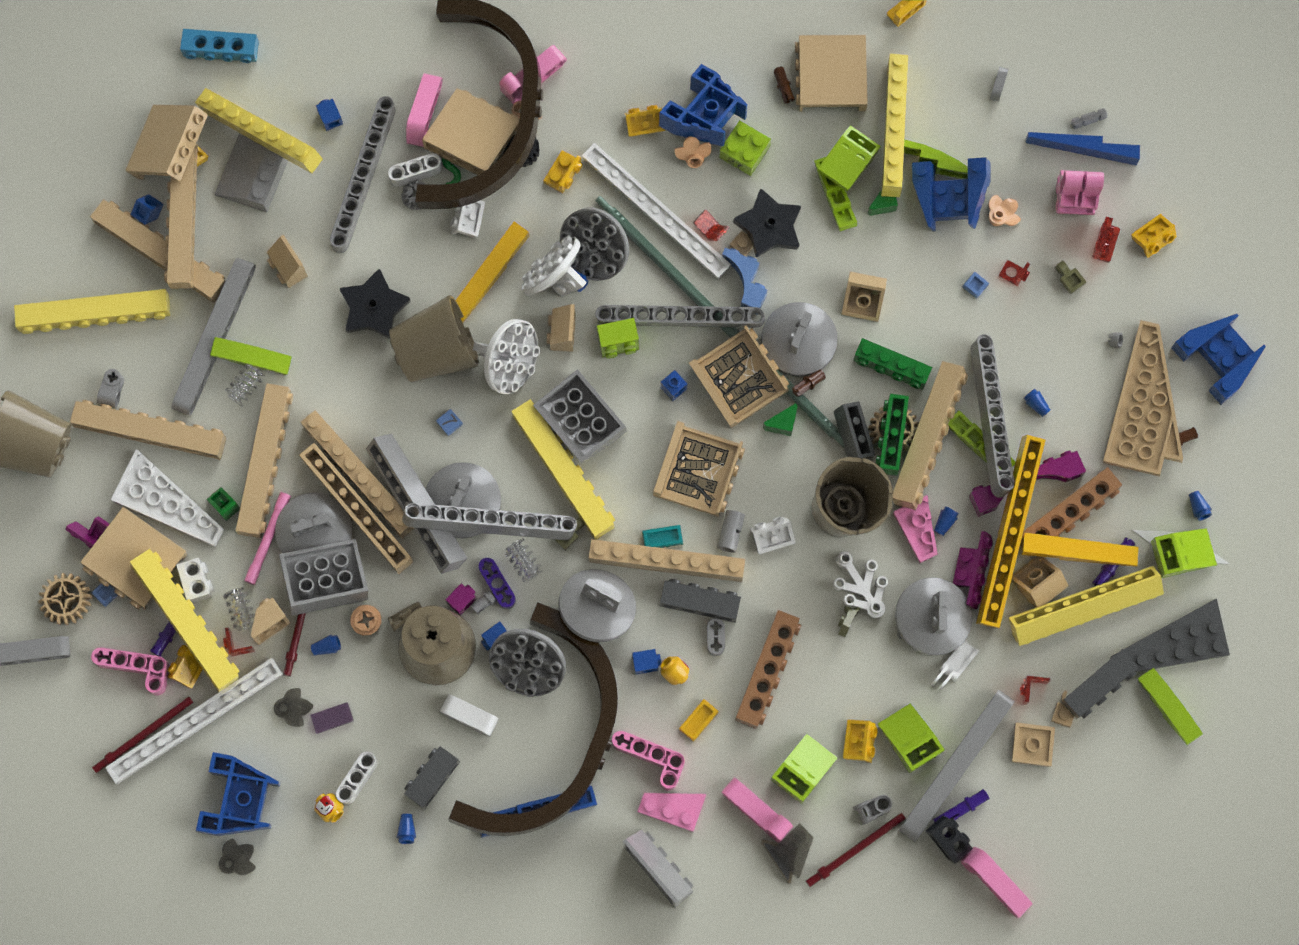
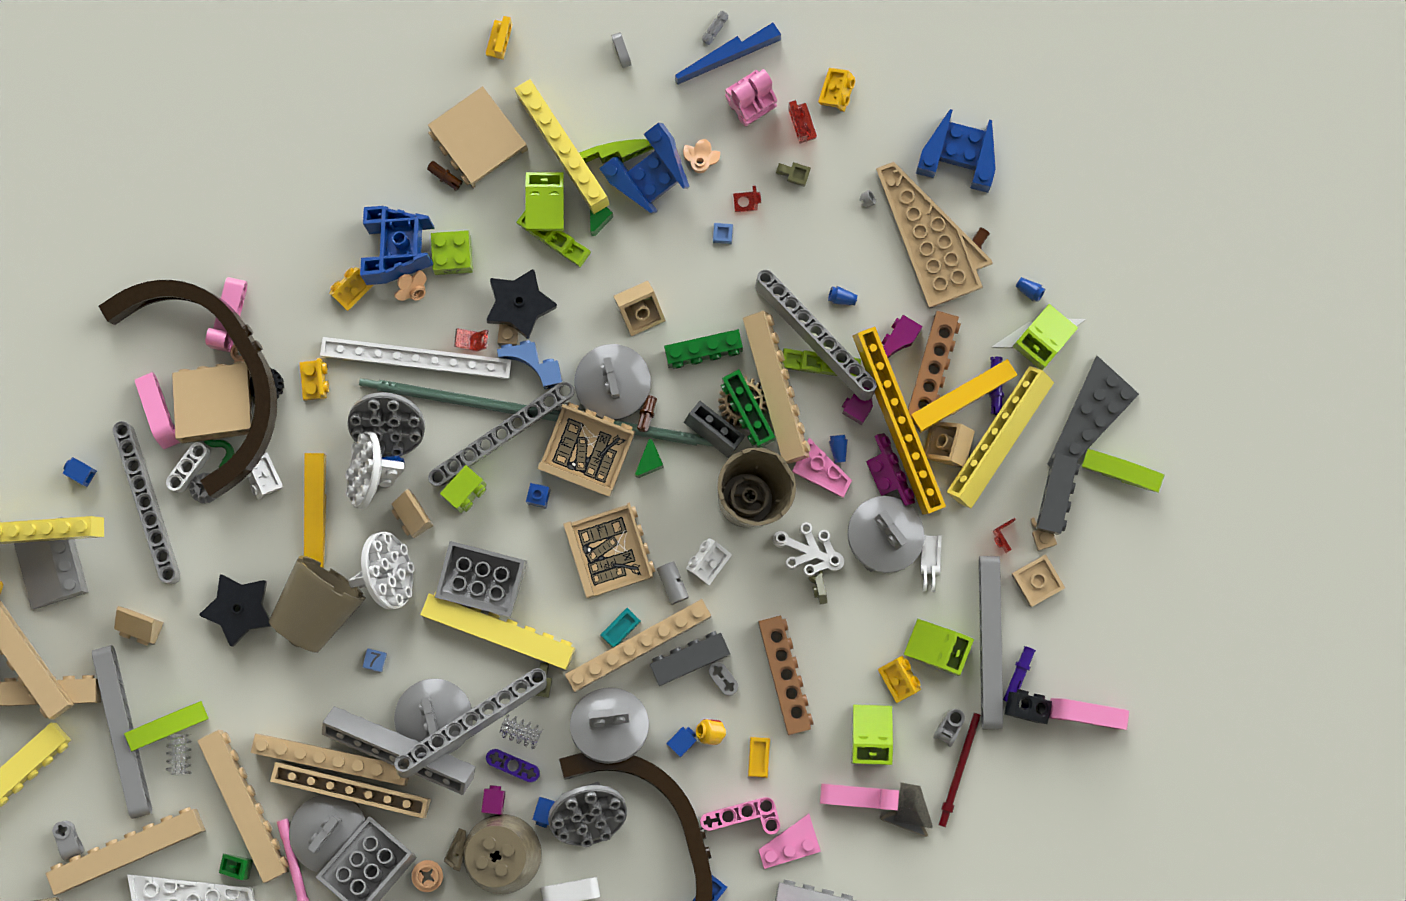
camera: 35 degrees left, 5 degrees up
(483, 602) = (513, 790): light grey pin -> none

